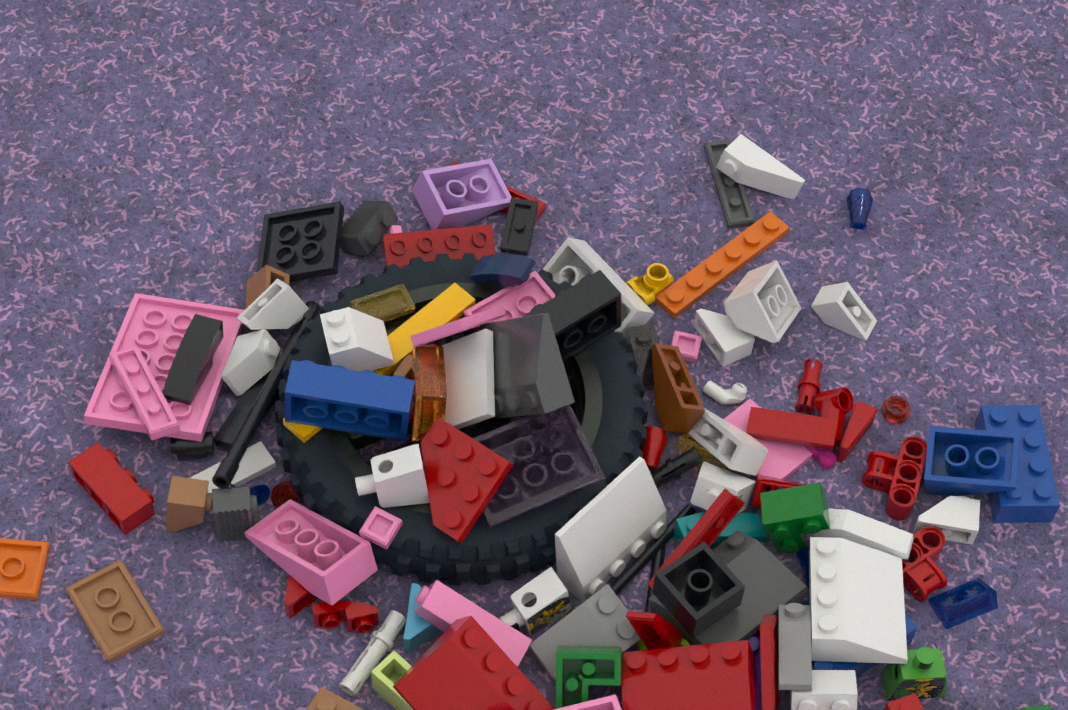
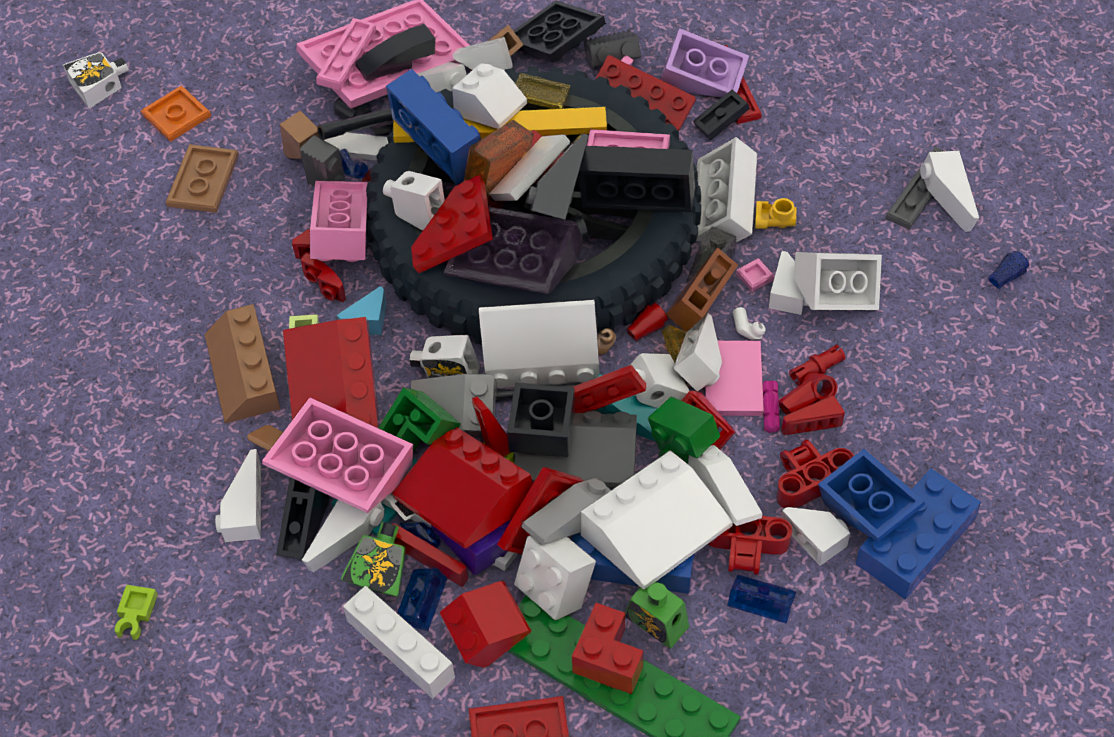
camera: 50 degrees right, 0 degrees up
(112, 487) = (276, 101): red brick -> none
(380, 527) = (380, 227): bright pink tile -> none
(380, 643) = (325, 312): white pin -> none
(443, 606) = (385, 338): bright pink brick -> none
(458, 325) = (559, 126): bright pink tile -> none
(504, 268) = (644, 118): dark blue slope -> none
(684, 462) = (657, 344): black pin -> none
(721, 265) = (851, 239): orange plate -> none
(792, 428) = (761, 379): red tile -> none
(844, 310) = (906, 332): white slope -> none
(899, 403) = (868, 421): clear red plate -> none

